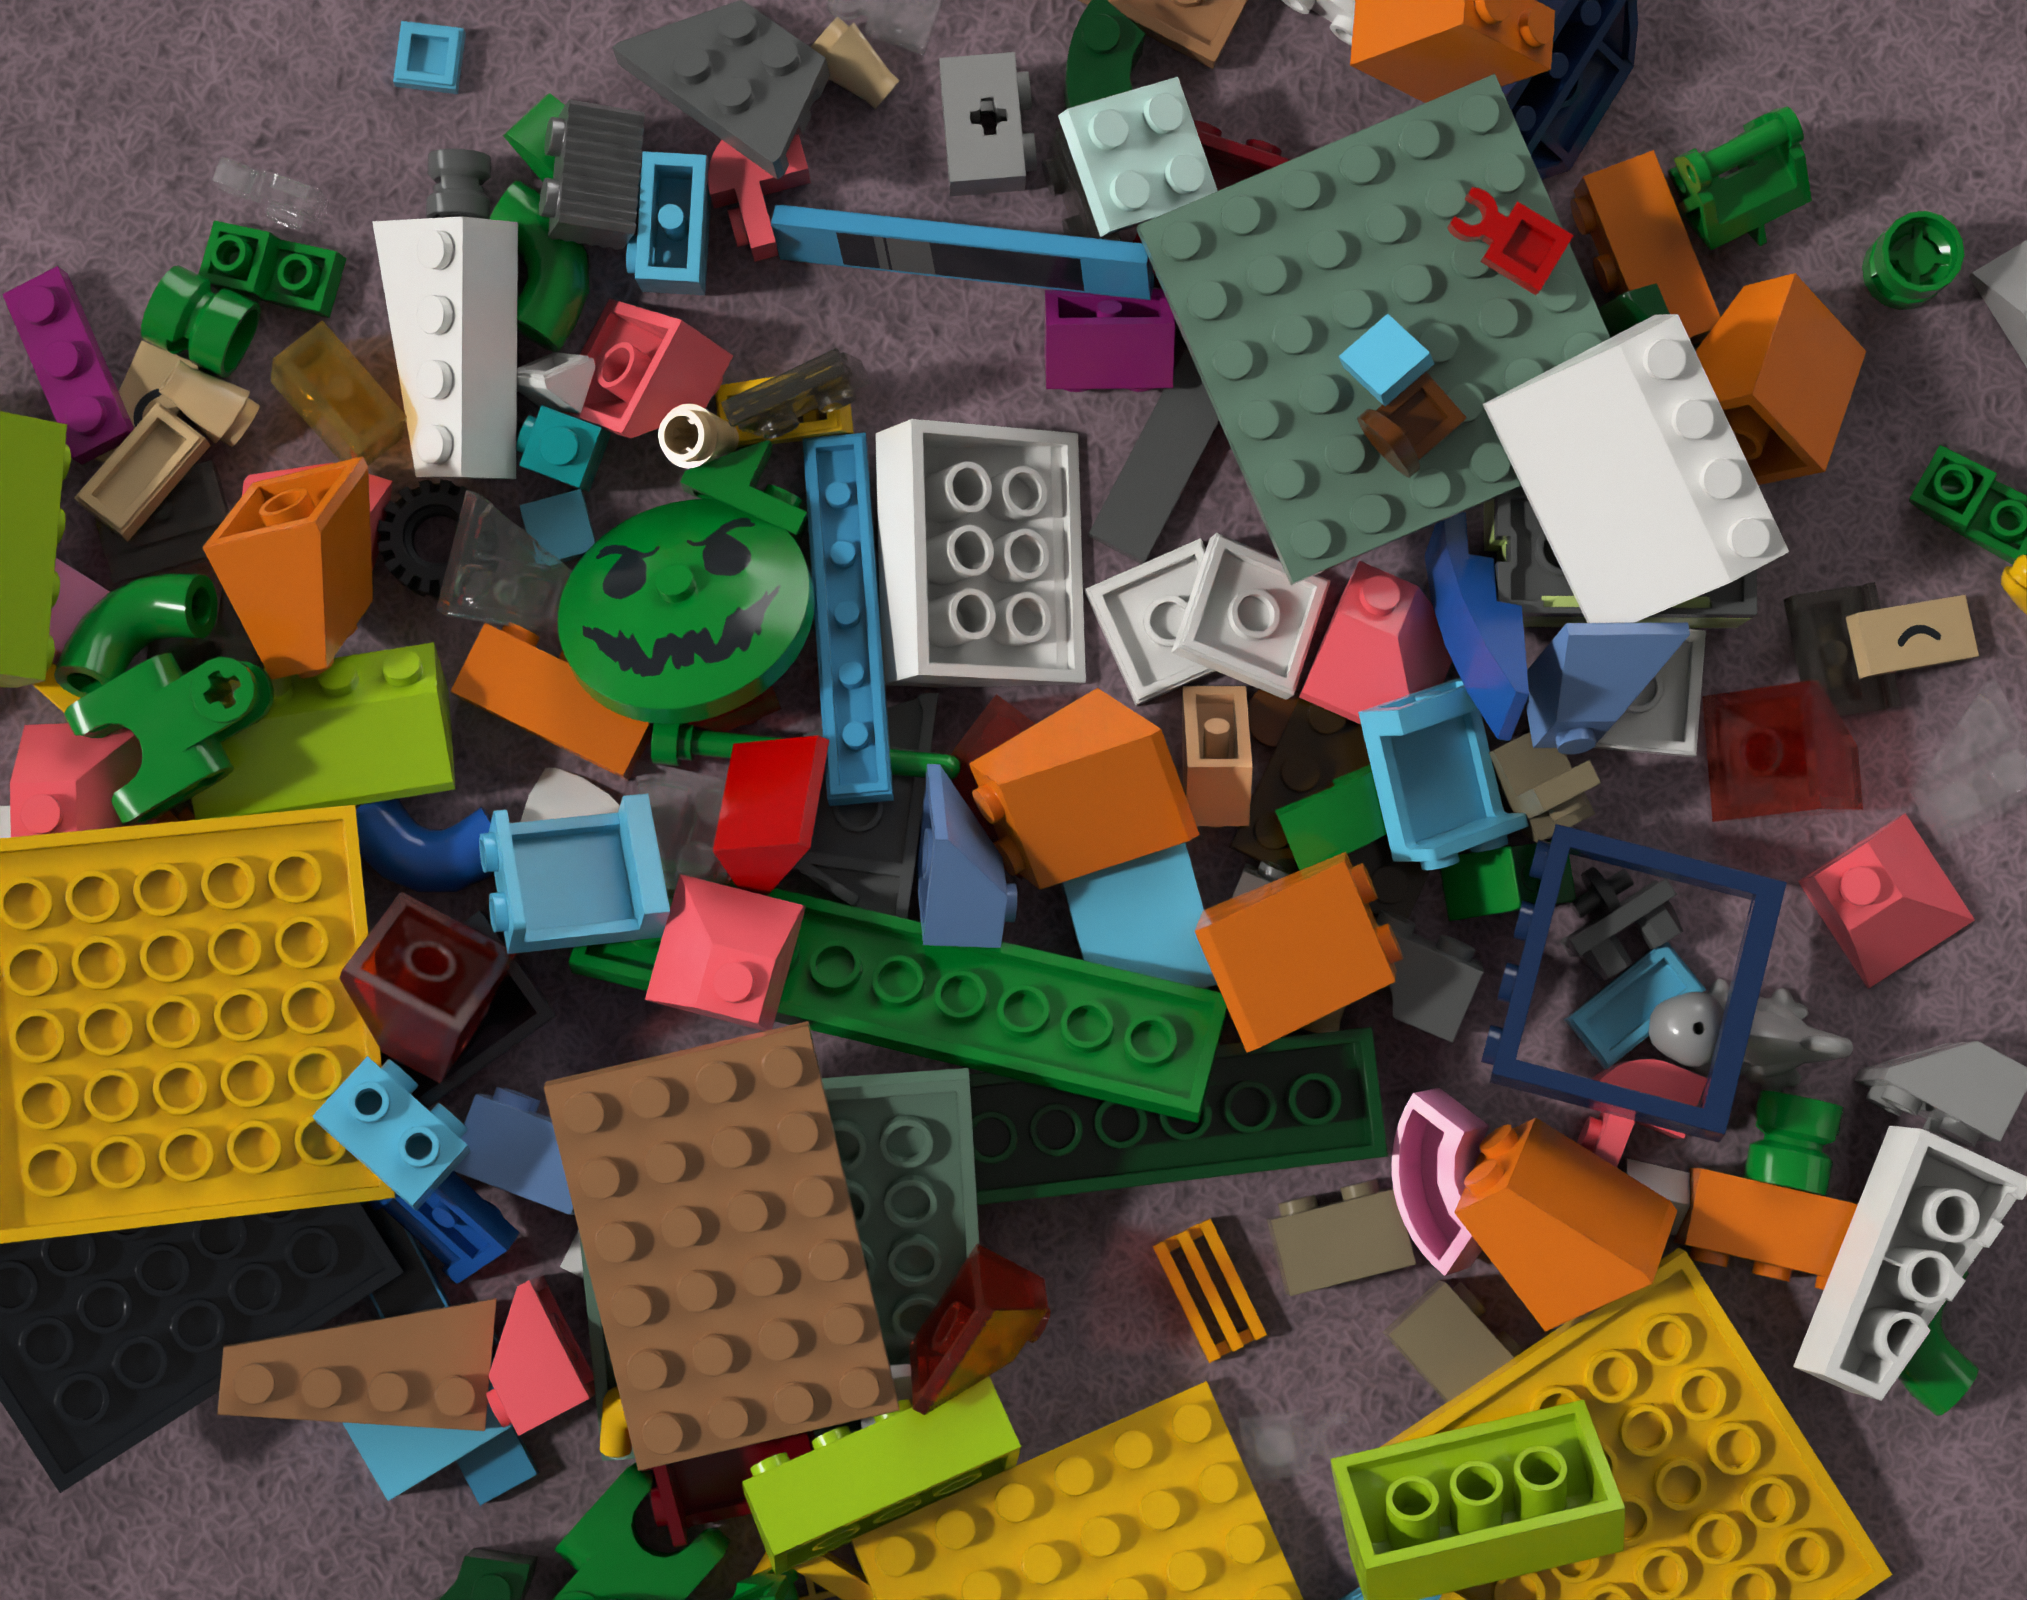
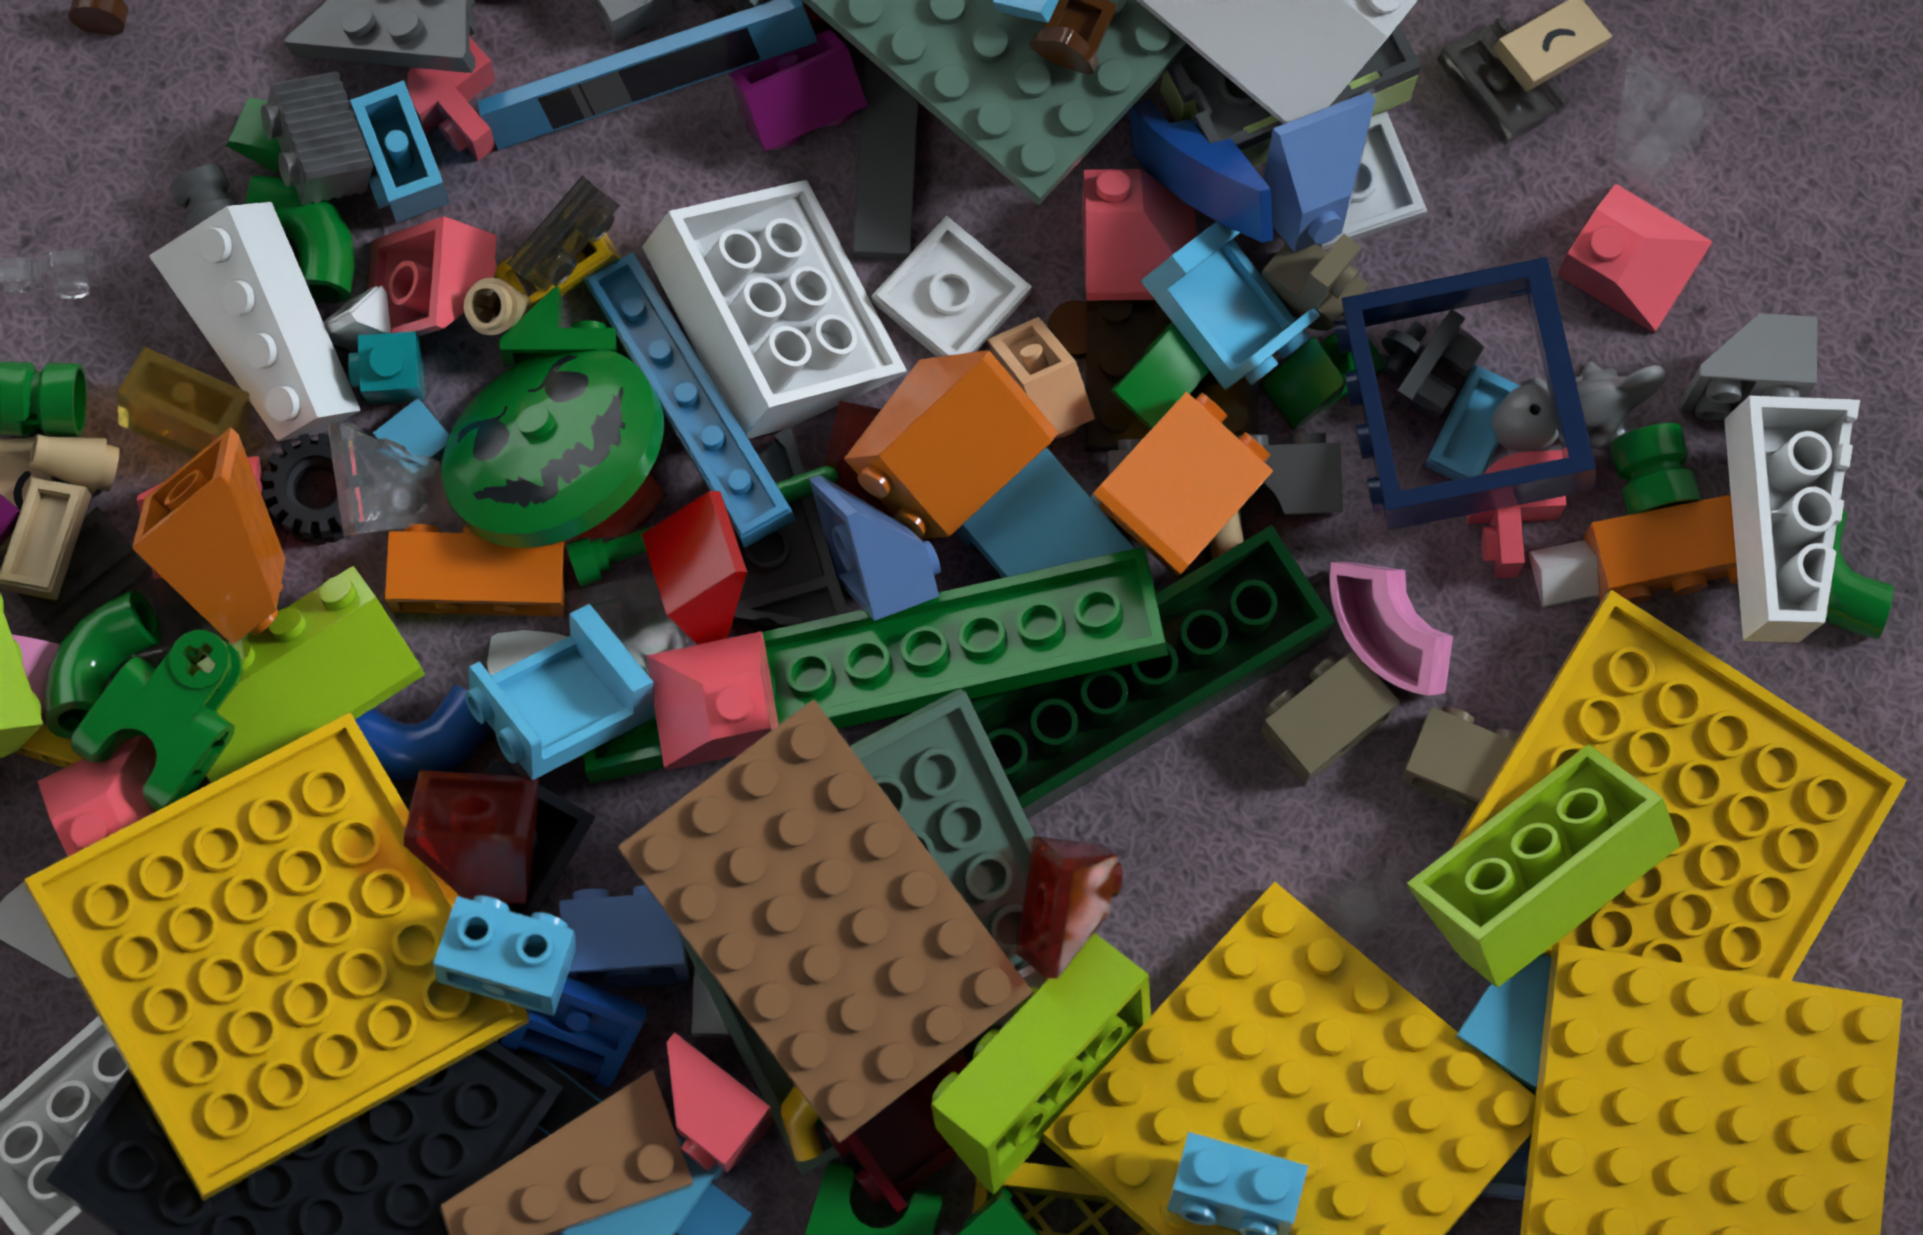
camera: 20 degrees left, 10 degrees down
(272, 268) = (84, 336): green slope -> none
(429, 57) = (135, 115): medium azure tile -> none
(1233, 1339) = (1281, 839): light orange tile -> none
(1249, 617) = (1016, 256): white tile -> none
(1562, 1222) = (1500, 608): orange slope -> none
(1779, 754) = (1493, 178): clear red slope -> none

